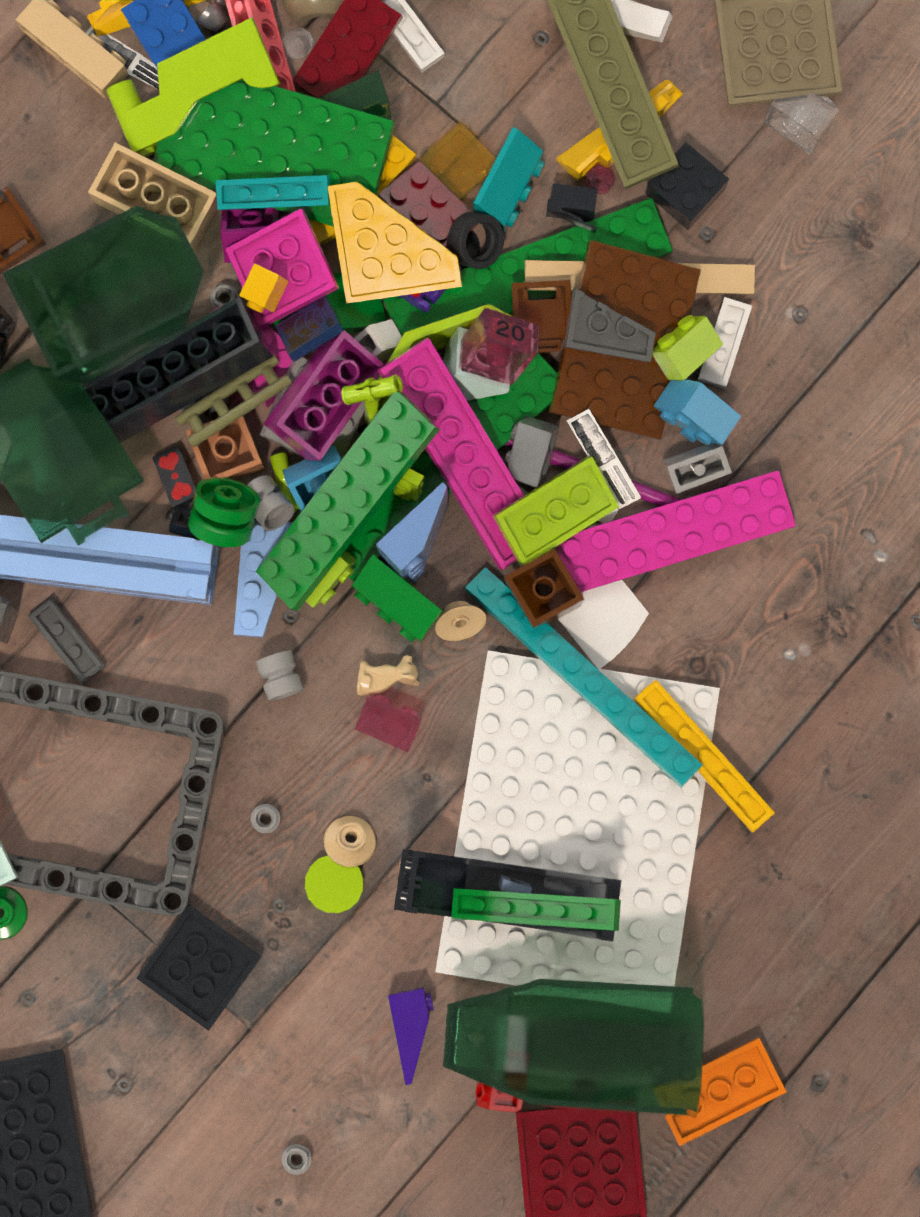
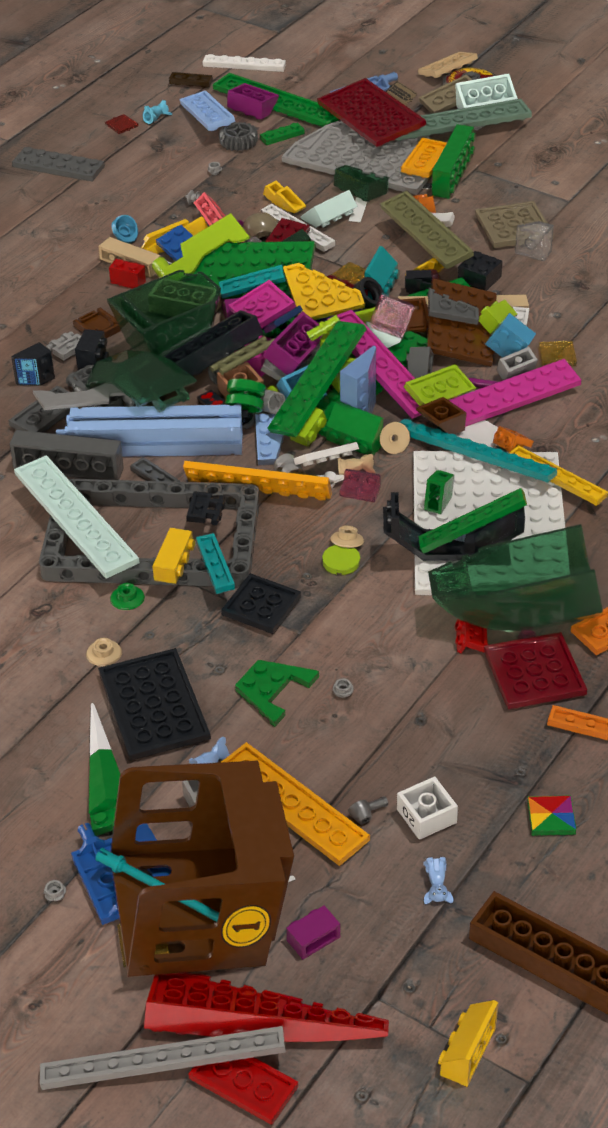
camera: 10 degrees left, 40 degrees down
(62, 101) = (127, 273): none -> red brick
(70, 878) = (173, 555): none -> yellow brick
(123, 767) = (200, 509): none -> black plate
(132, 900) = (215, 563): none -> teal plate
(184, 1129) = (266, 681): none -> green wing
(224, 700) = (265, 480): none -> light orange plate
(256, 818) = (291, 534): light grey plate -> none
(263, 289) = (255, 305): yellow brick -> none
(341, 657) = (321, 456): none -> white plate
(342, 698) = (333, 477): none -> white piece
(410, 1020) = (403, 611): dark purple slope -> none
(502, 788) = (441, 485): none -> green torso
(597, 446) = (452, 357): sticker -> none
(651, 654) = (509, 439): none -> orange bracket
(776, 428) = (556, 351): none -> clear yellow tile

